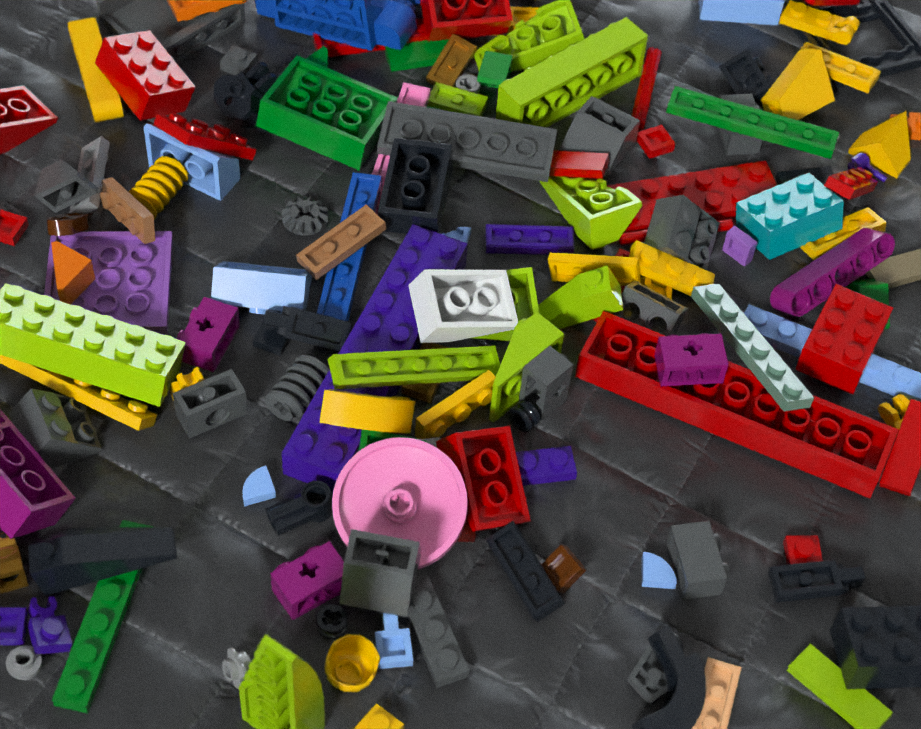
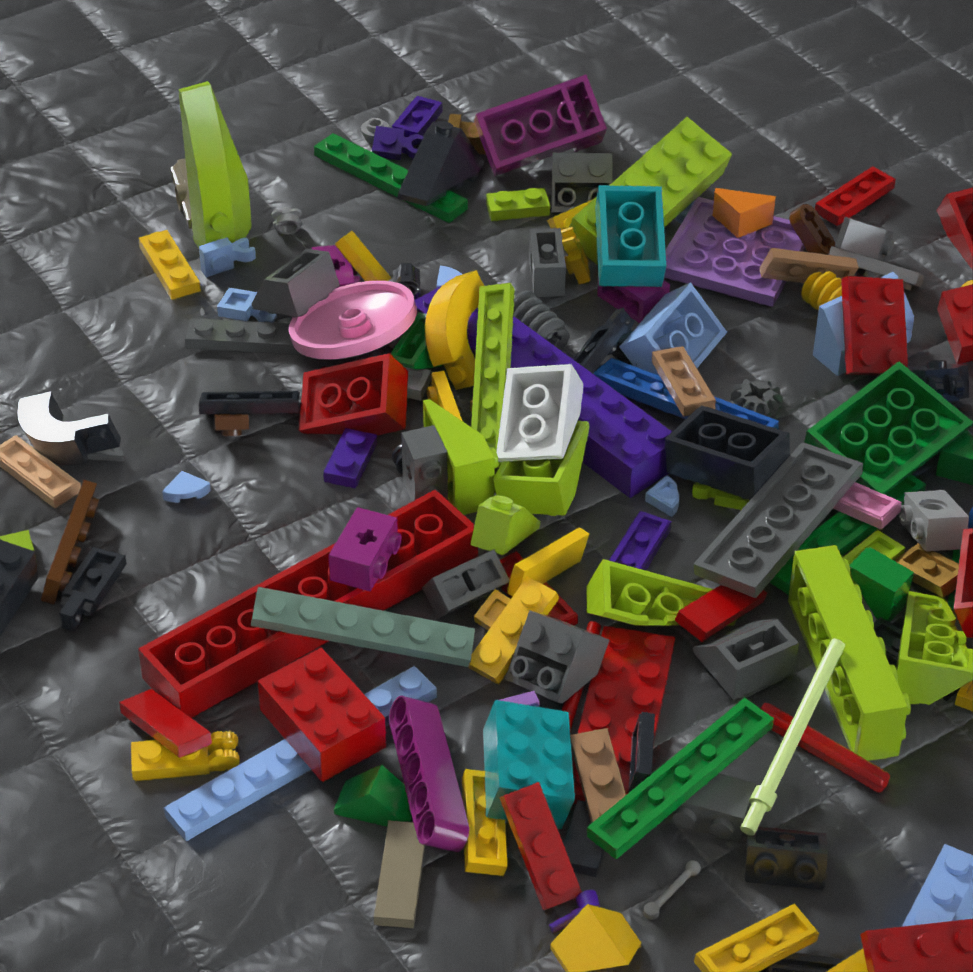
camera: 120 degrees right, 10 degrees down
(104, 479) = (517, 204): none -> lime plate
(186, 312) = (630, 236): none -> teal brick
(288, 551) = (361, 258): none -> yellow tile
(336, 702) = (221, 254): none -> light blue plate
(351, 663) = (240, 272): yellow hair -> none
(406, 62) = (933, 520): none -> light grey brick
(655, 141) = (716, 705): red plate -> none
(697, 560) = (172, 510): dark grey brick -> none
(729, 85) = (764, 794): none -> yellowish green bar
(741, 154) = (641, 750): none -> black tile
(772, 173) = (597, 771): none -> medium nougat plate
(781, 620) = (67, 551): none -> reddish brown plate
(800, 87) = (727, 877): yellow slope -> none
(802, 549) = (126, 598): red plate -> none

